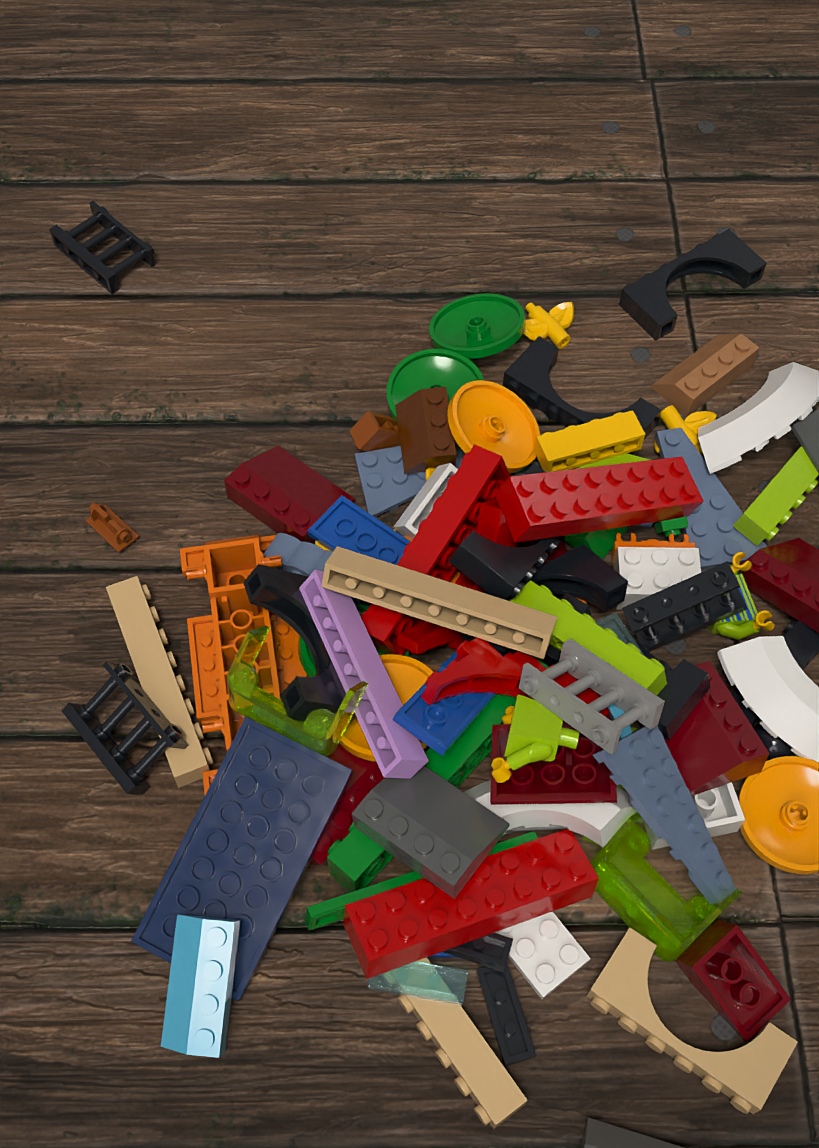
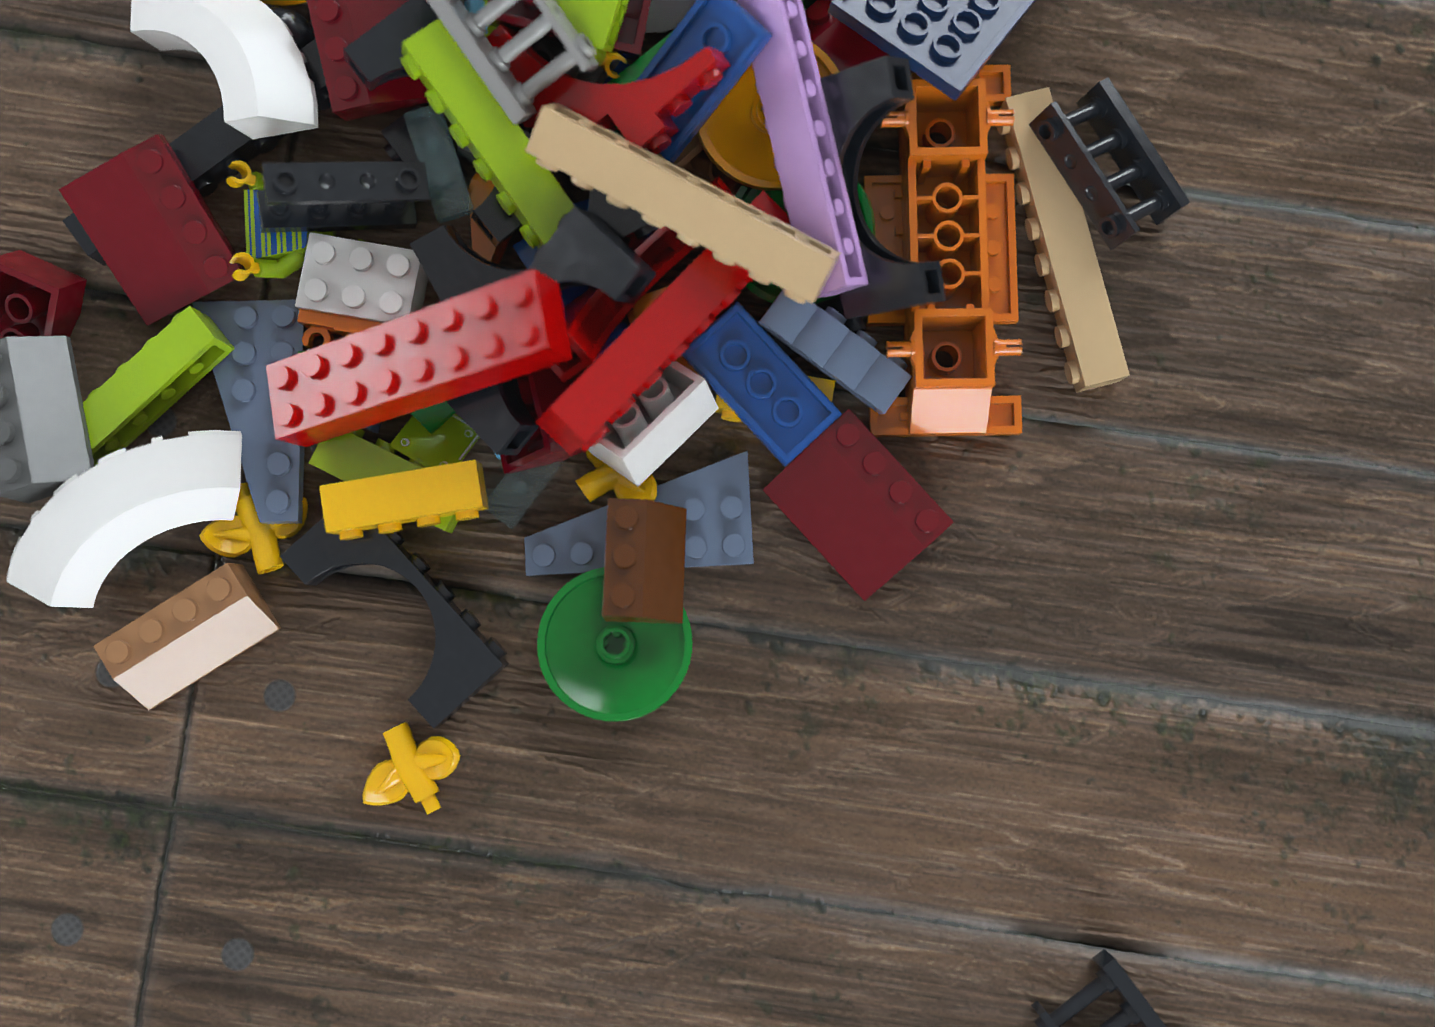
camera: 170 degrees left, 25 degrees up
(110, 527) = (1116, 491): dark orange hinge -> none
(322, 727) = (941, 96): clear neon green windscreen -> none
(375, 432) = (718, 589): dark orange slope -> none
(478, 325) = (525, 769): green dish -> none
(494, 420) = (541, 552): light orange dish -> none
(721, 256) = (86, 863): black arch -> none

